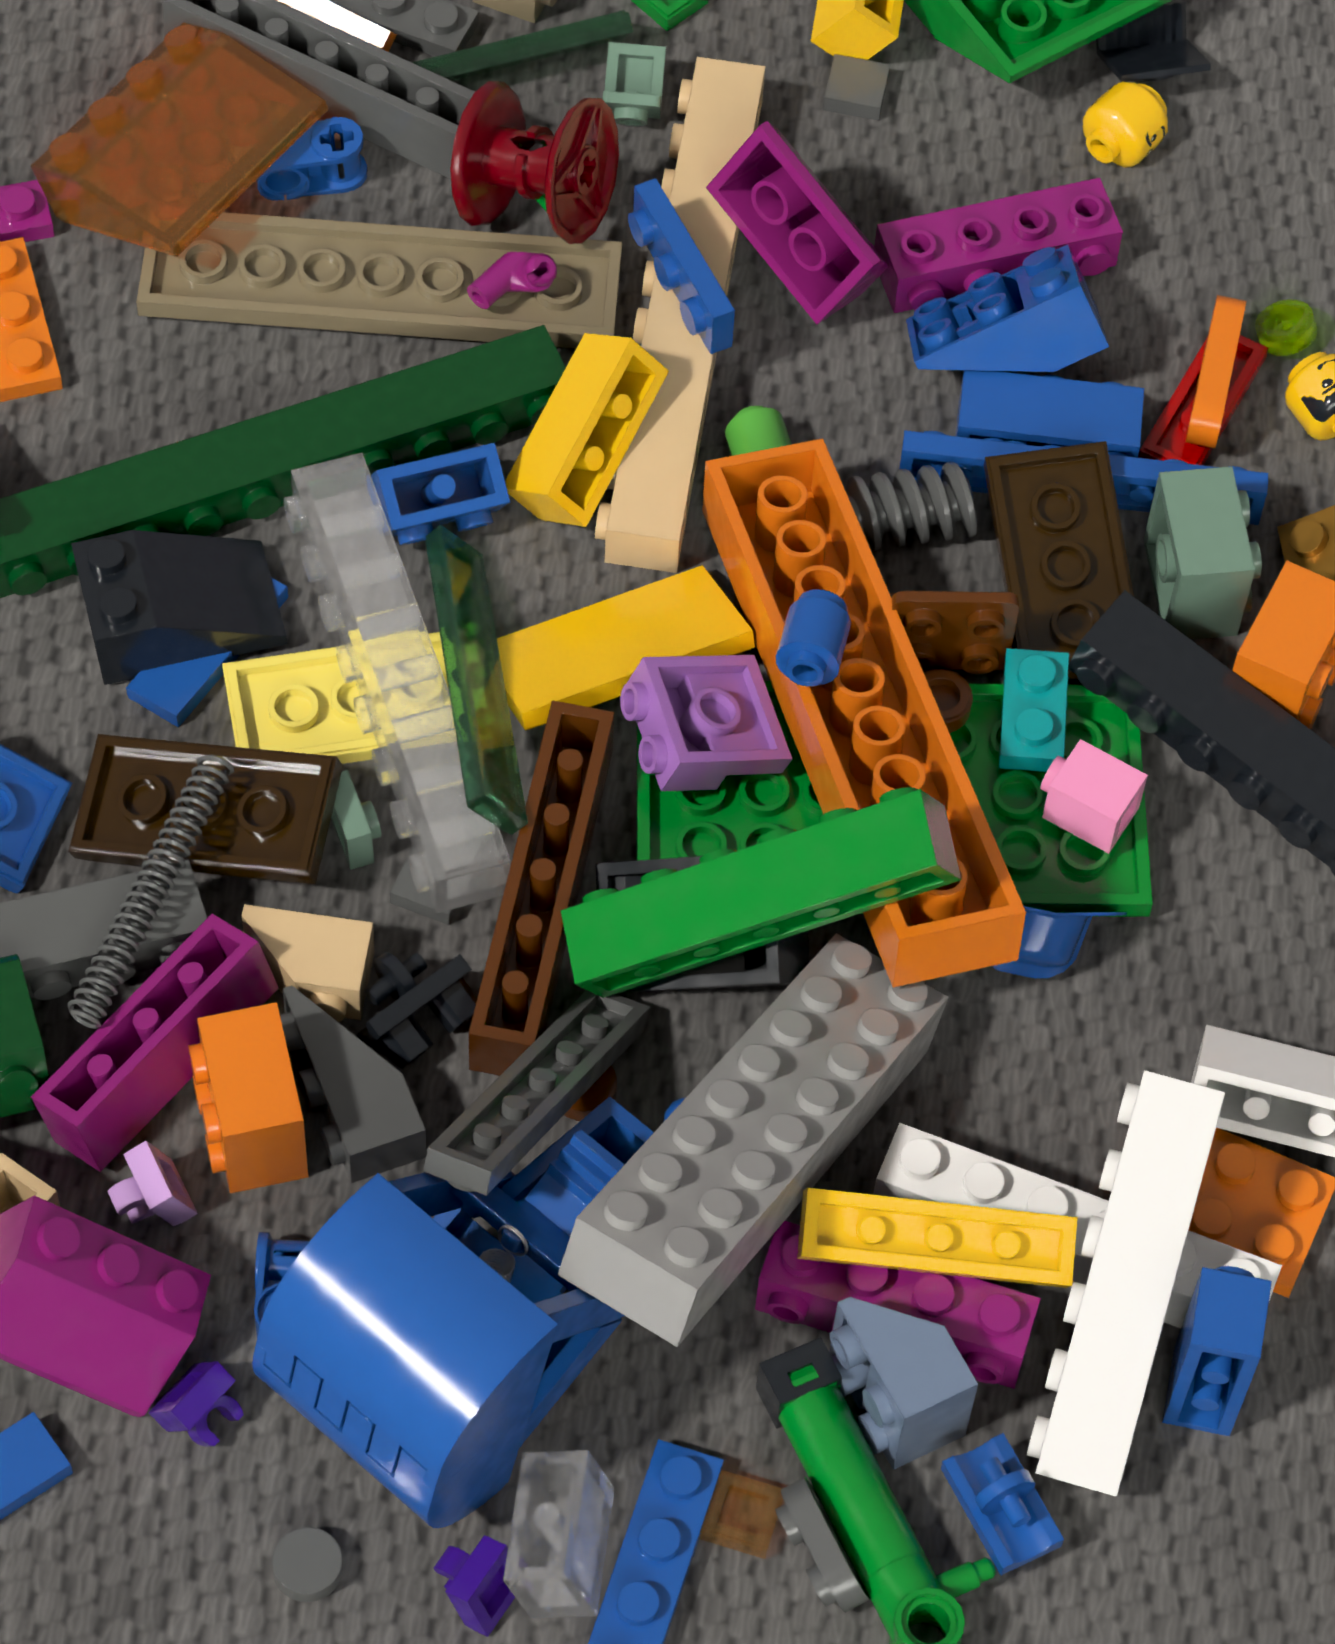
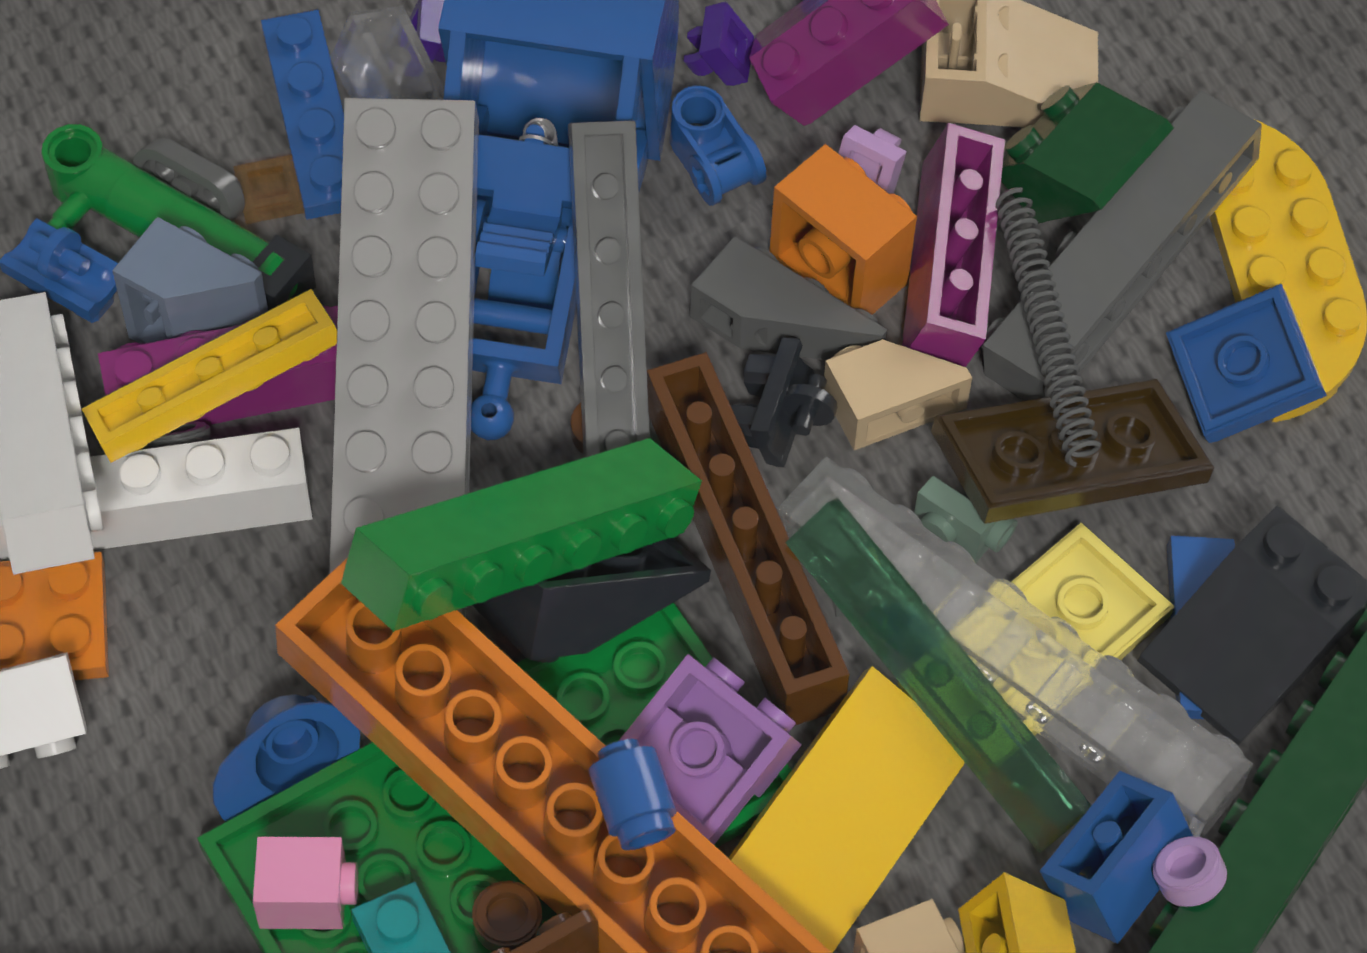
camera: 150 degrees right, 0 degrees up
(399, 437) = (1190, 871): none -> lavender tile

